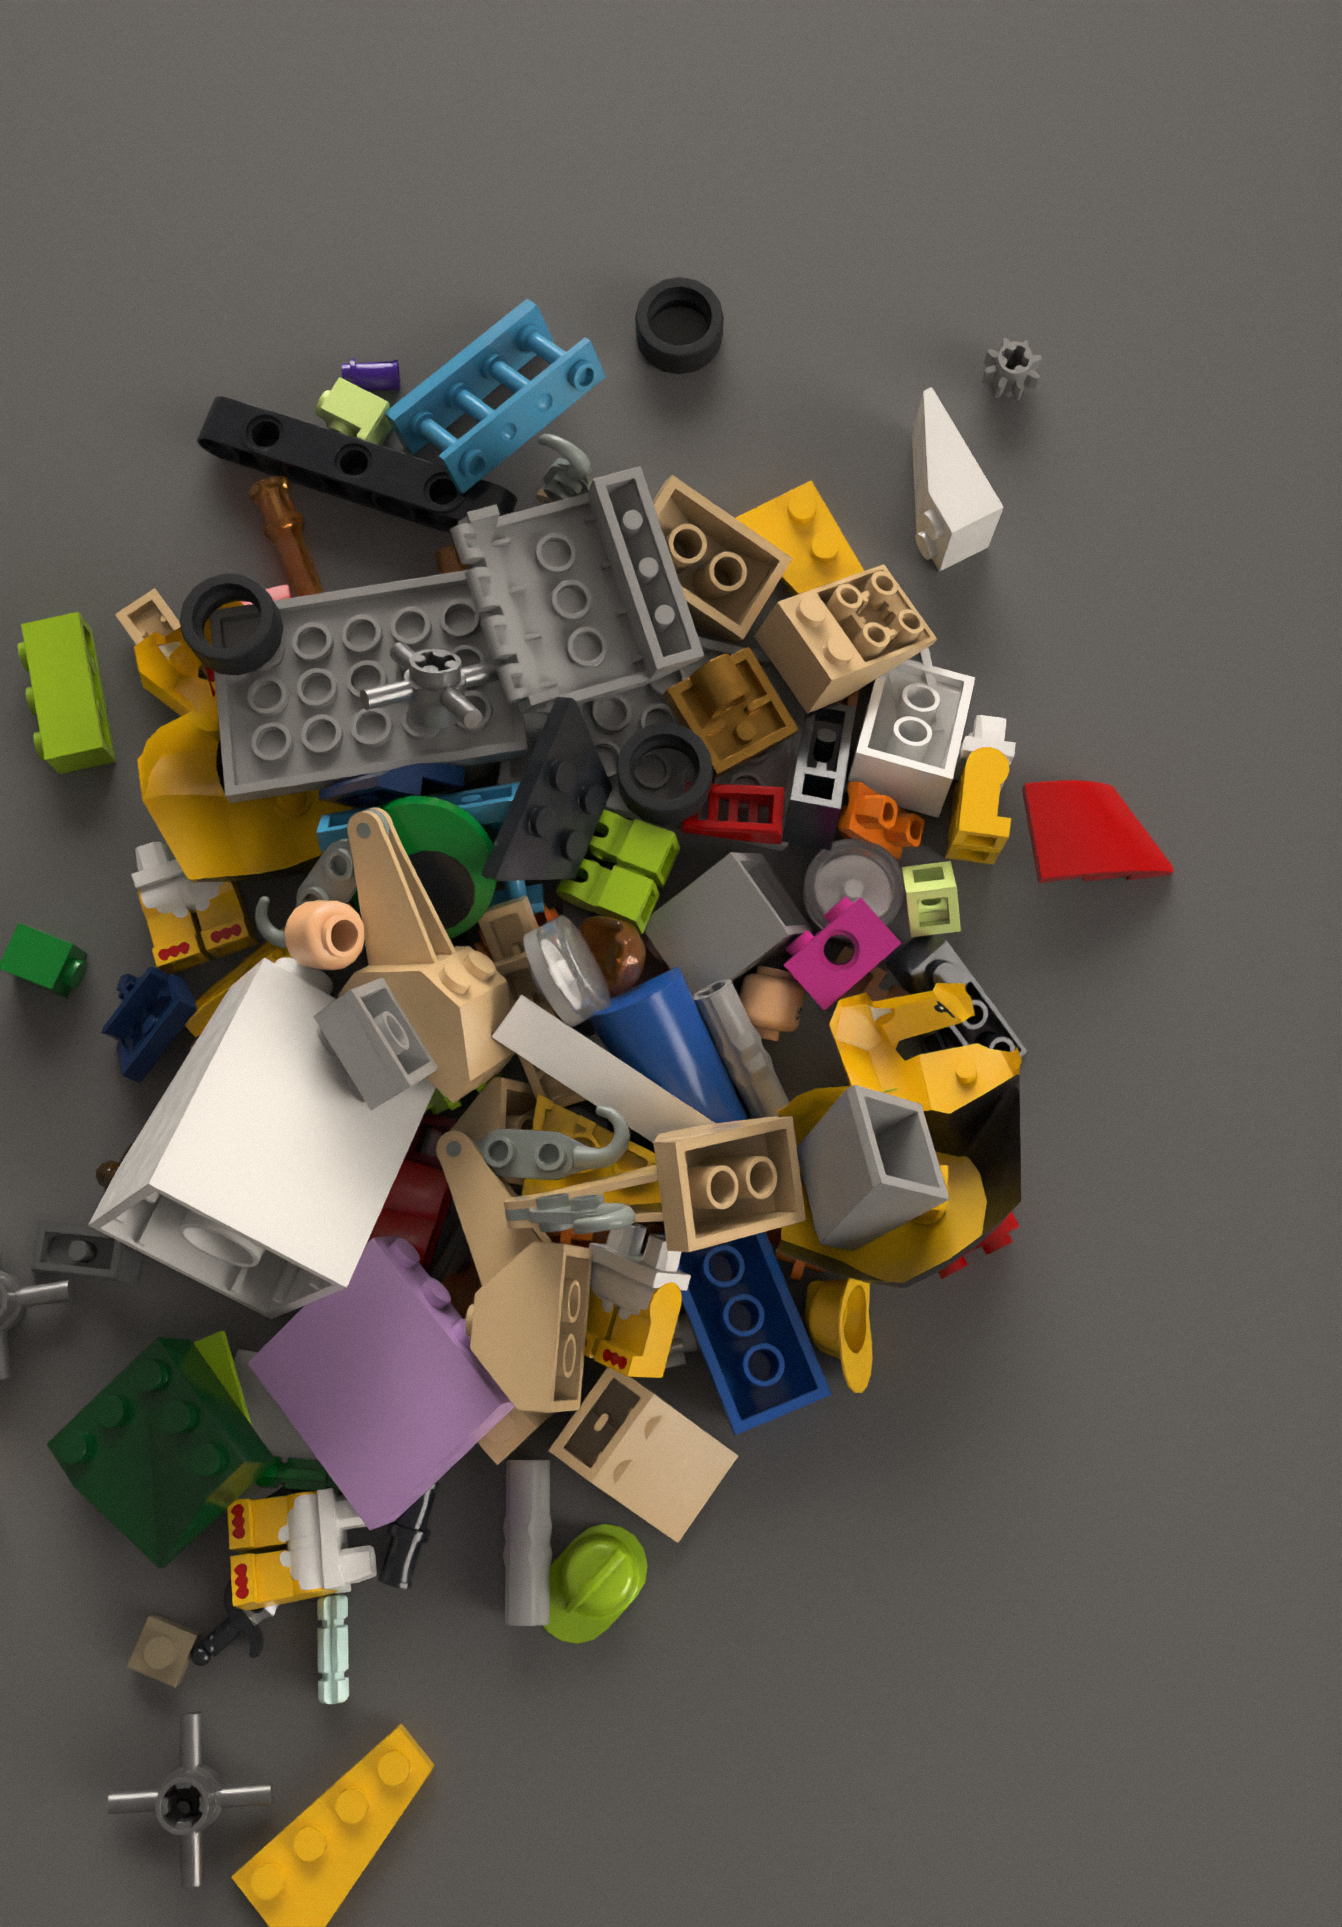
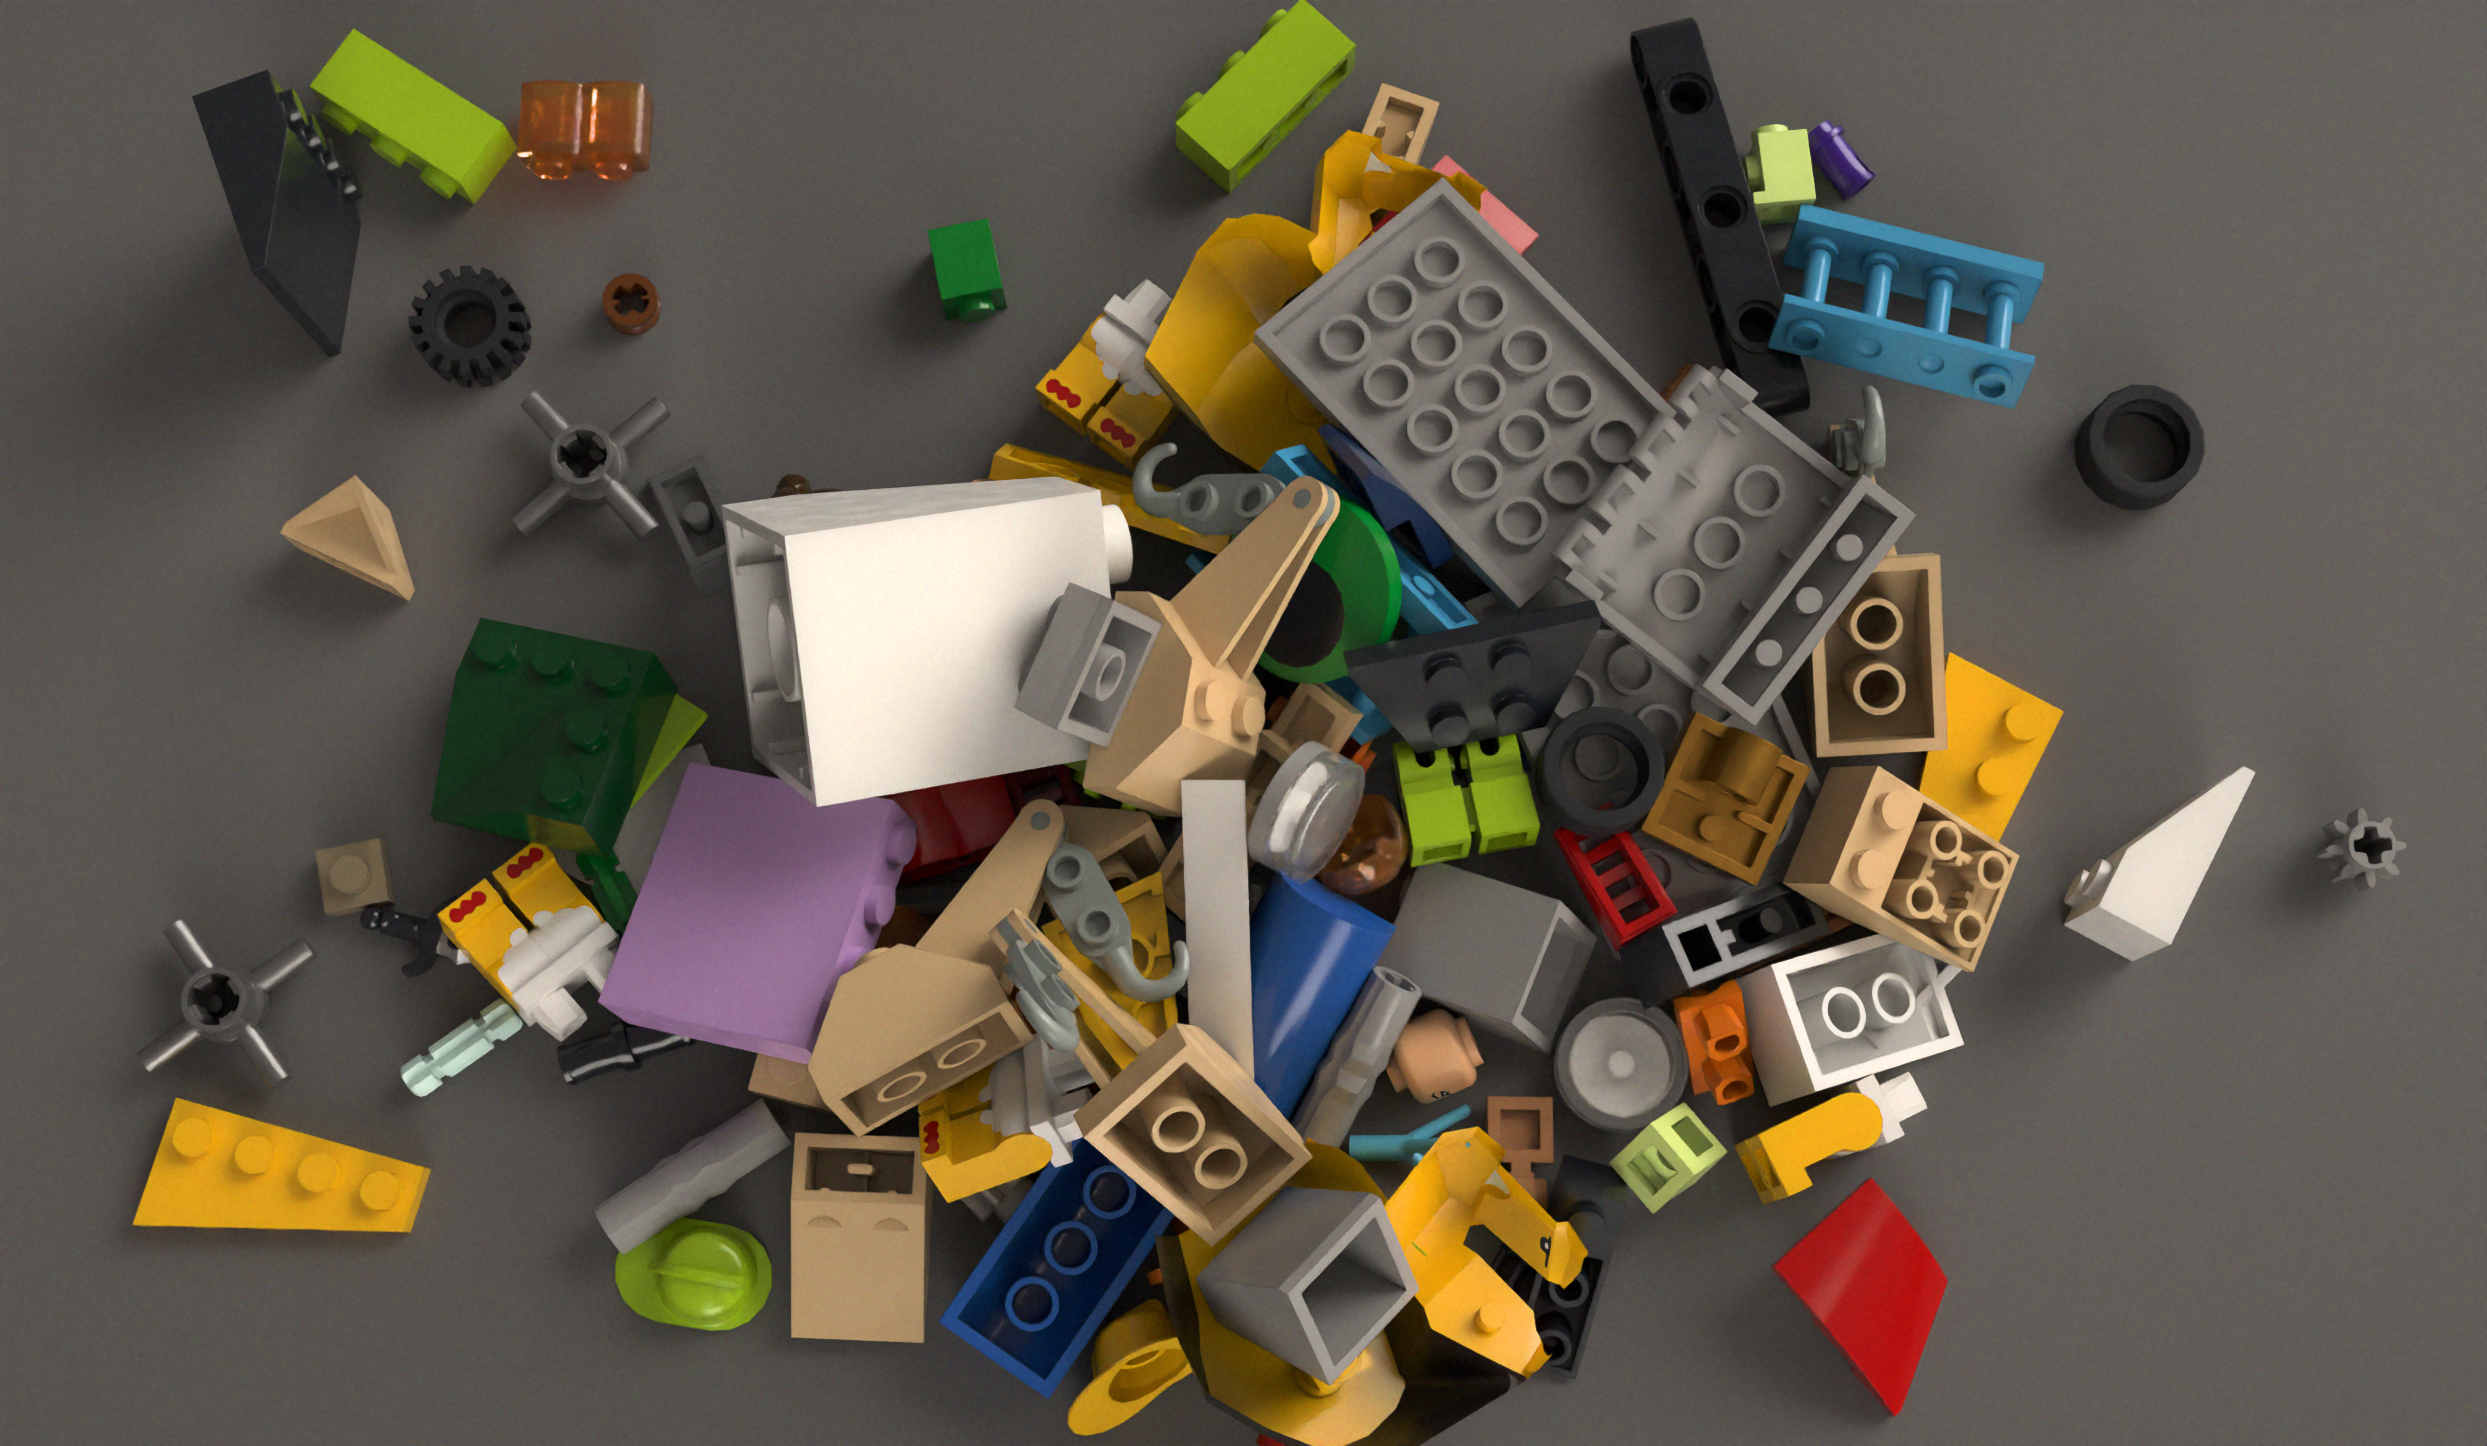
camera: 55 degrees right, 0 degrees up
(148, 1018) = (977, 416): dark blue slope -> none
(210, 596) = (1456, 168): black tyre -> none
(285, 528) = (1600, 189): clear orange pin -> none
(324, 935) = (1168, 534): light nougat head -> none
(433, 687) = (1512, 464): flat silver bar -> none
(816, 1055) = (1406, 1146): none -> medium azure plant
(830, 980) = (1496, 1098): dark pink brick -> none

